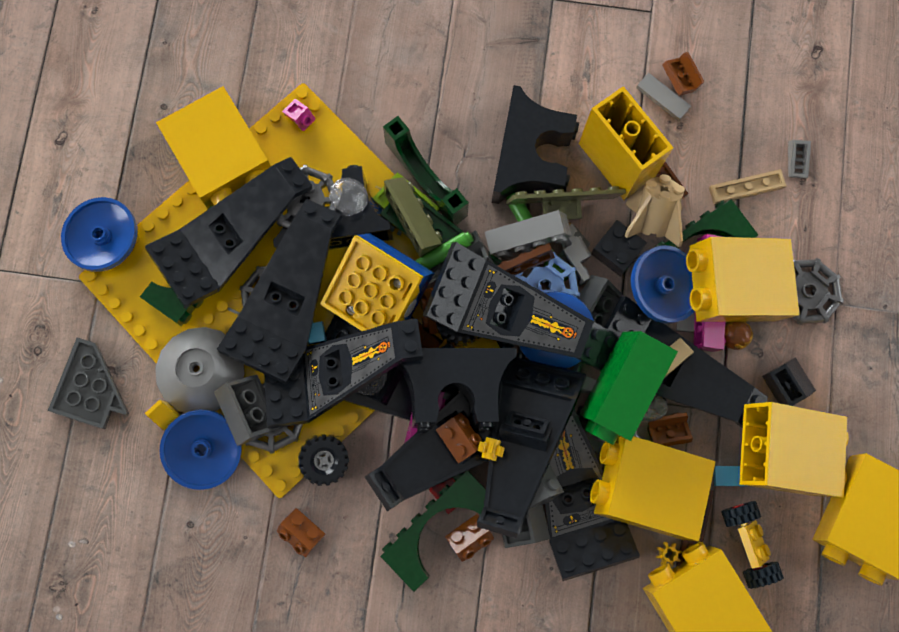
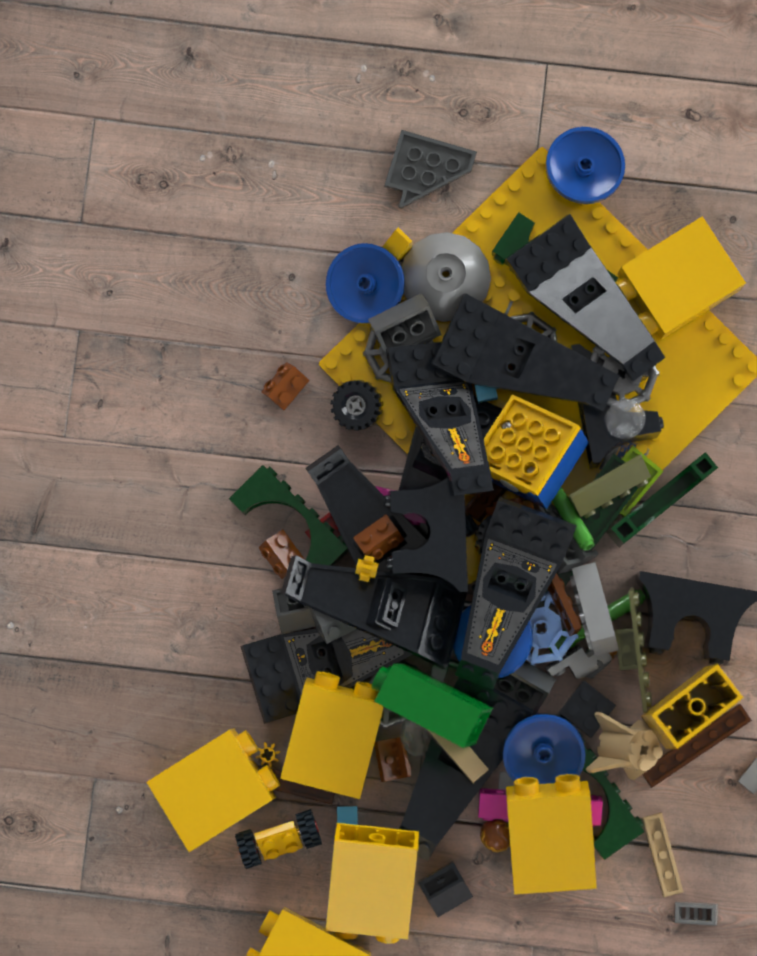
camera: 95 degrees right, 5 degrees up
(299, 114) = (725, 364): dark pink bracket -> none
(819, 289) = (546, 928): flat silver plate -> none

